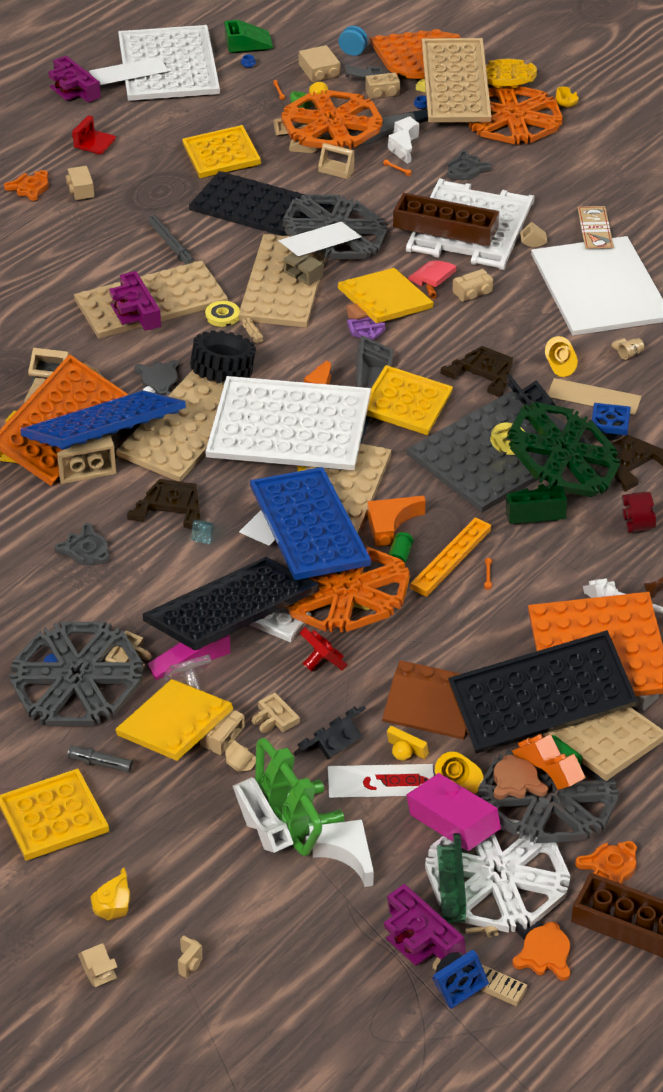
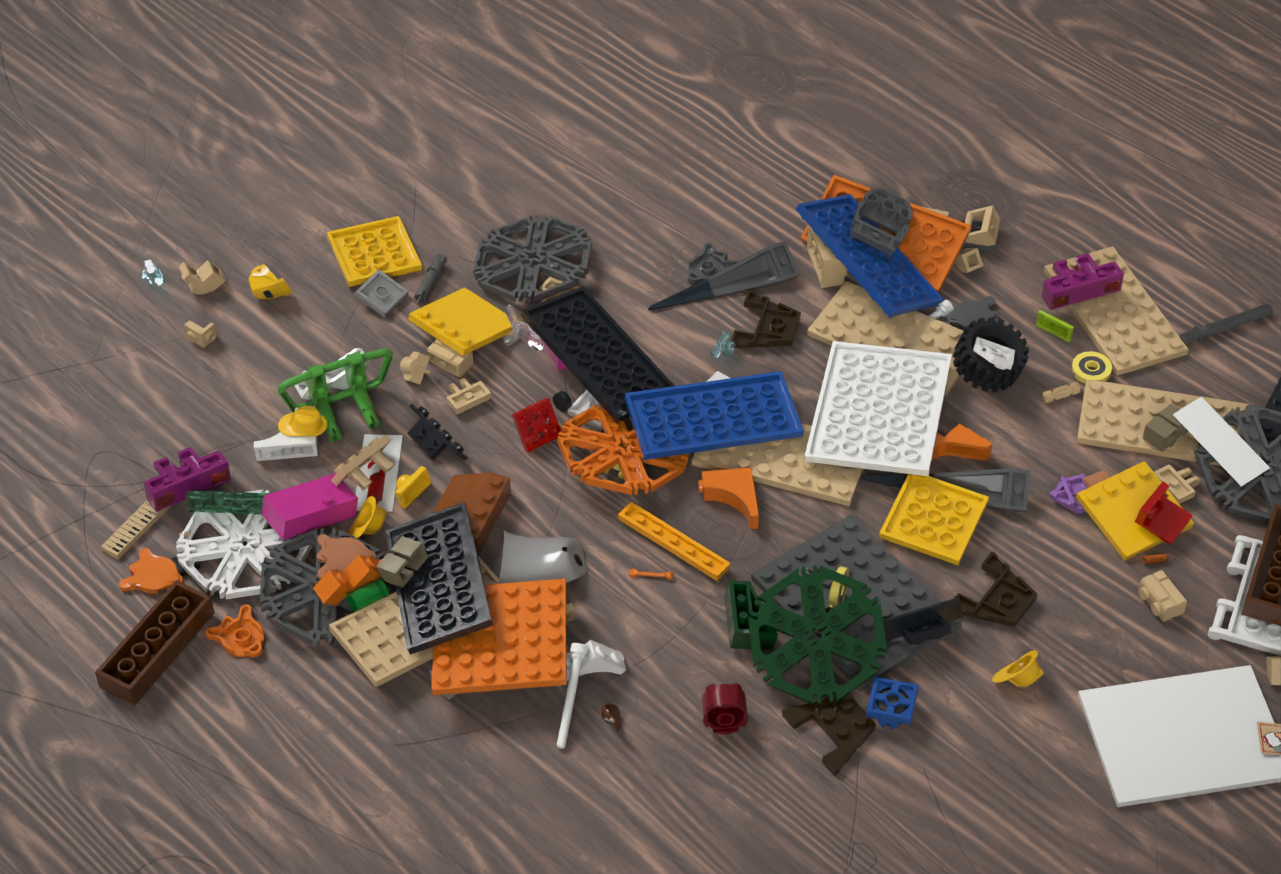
camera: 95 degrees right, 5 degrees up
(53, 402) = (886, 211): none -> dark grey slope
(84, 1021) = (151, 273): none -> clear light blue tile
(101, 506) = (761, 270): none -> dark grey plate
(124, 797) = (381, 293): none -> light grey plate
(175, 328) = (1054, 326): none -> lime slope
(236, 342) = (999, 355): none -> white plate
(281, 640) = (562, 401): none -> black tile
(337, 831) = (303, 422): none -> yellow piece
(352, 271) = (1179, 487): none -> tan hinge
(388, 774) = (366, 454): none -> tan plate
(395, 275) = (1162, 516): none -> red bracket
(401, 546) = (684, 497): green piece -> none
(433, 273) = (1186, 560): coral slope -> none
(459, 977) = (124, 496): blue piece -> none
(488, 636) = (540, 559): none -> light grey piece
(526, 715) = (404, 554): none -> dark tan piece
(590, 394) = (957, 705): tan sticker -> none
(628, 348) = (1044, 745): tan piece -> none

